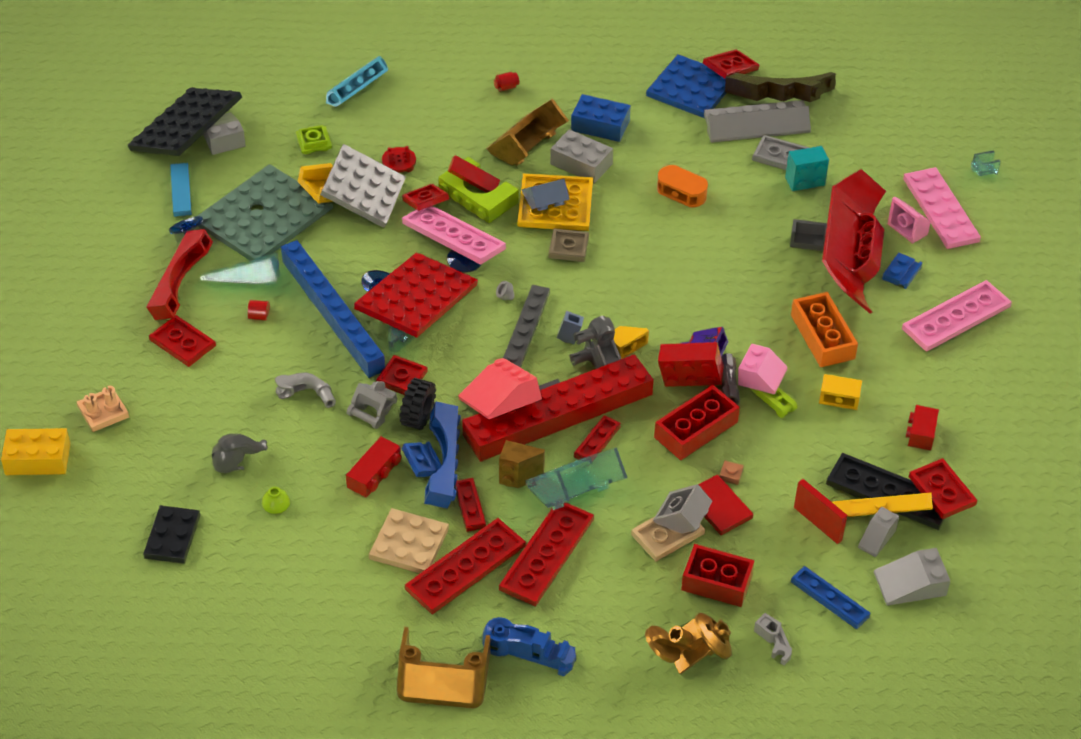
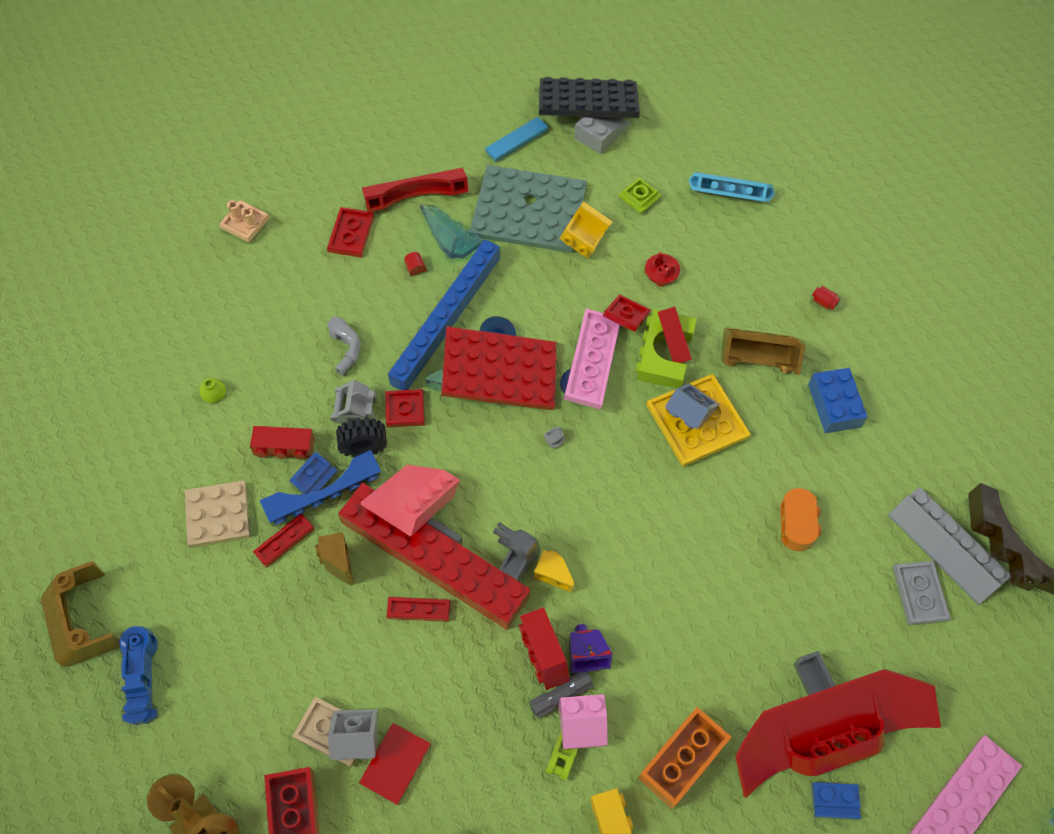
camera: 60 degrees right, 15 degrees up
(35, 451) = (175, 203): yellow brick -> none
(172, 534) = (142, 337): black plate -> none
(186, 225) = (473, 164): clear blue dish -> none
(231, 451) = (238, 329): dark grey piece -> none
(363, 185) = (600, 258): light grey plate -> none
(465, 566) = (208, 573): red plate -> none
(526, 324) = (522, 476): dark grey plate -> none
(546, 553) = (255, 634): red plate -> none
(568, 245) = (649, 459): dark tan plate -> none
(570, 324) = (536, 514): sand blue brick -> none
(577, 477) = (341, 608): clear light blue windscreen -> none
(581, 155) = (772, 410): light grey brick -> none
(688, 86) = (951, 456): blue plate -> none
(696, 422) = (480, 690): red brick -> none
(730, 63) = (1011, 479): red tile -> none
(731, 472) = (443, 755): nougat plate -> none
(807, 168) = (907, 629): teal brick -> none
(907, 221) = (911, 774): bright pink slope -> none

